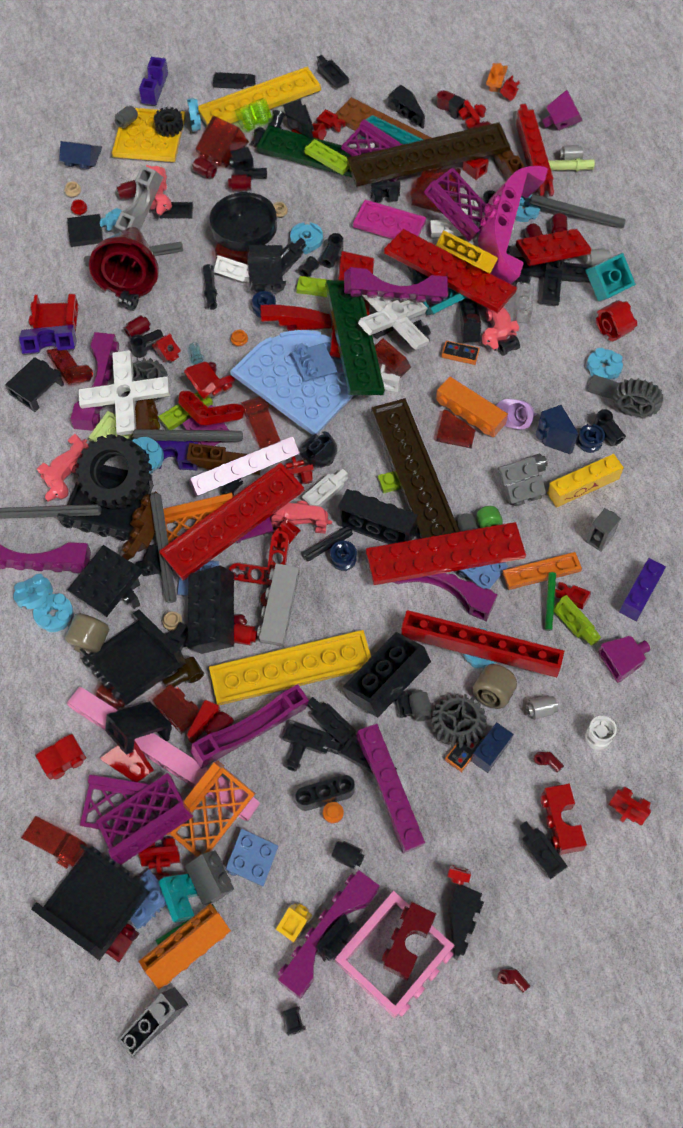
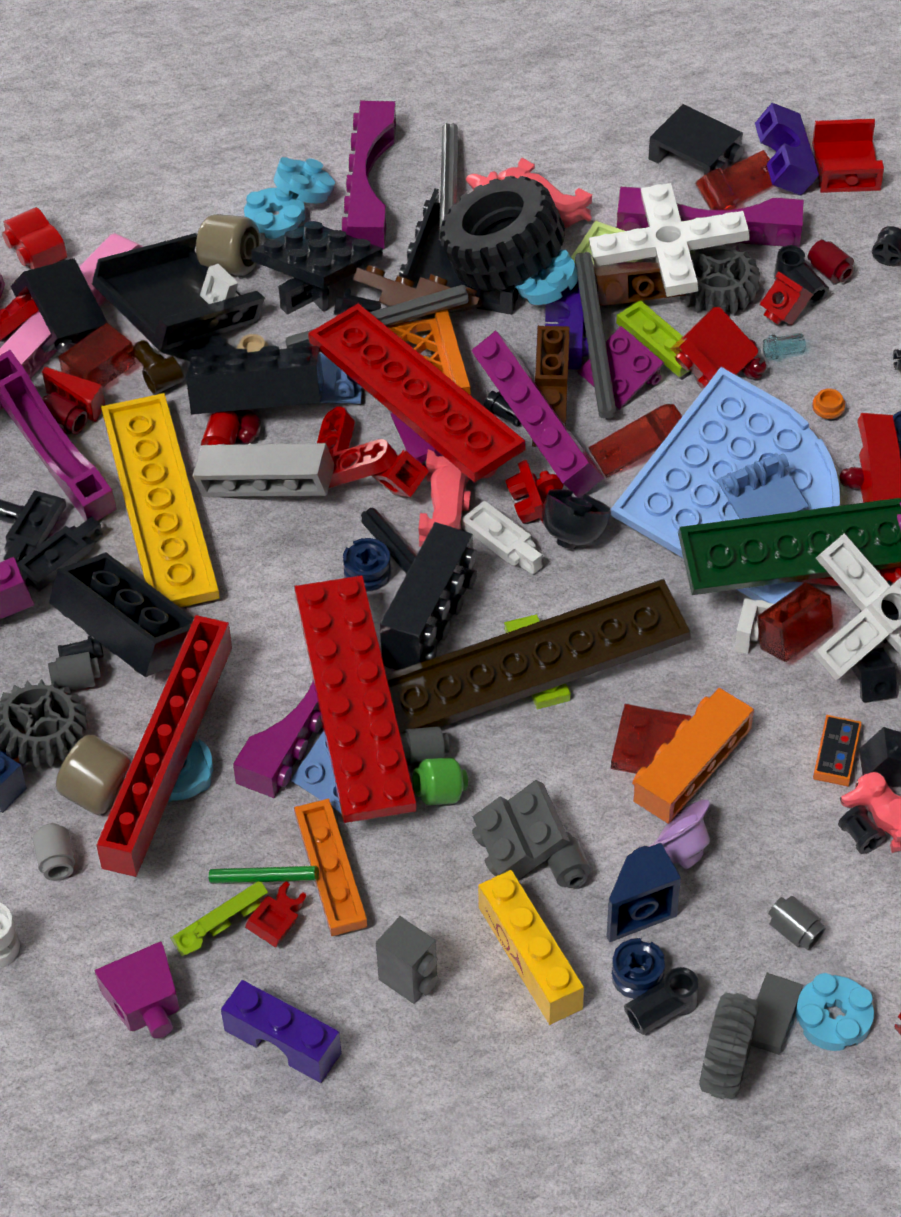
camera: 90 degrees right, 10 degrees down
(135, 631) = (218, 285): none -> white bracket
(212, 415) = (638, 346): red beam -> none
(561, 374) = (796, 922): none -> dark grey brick

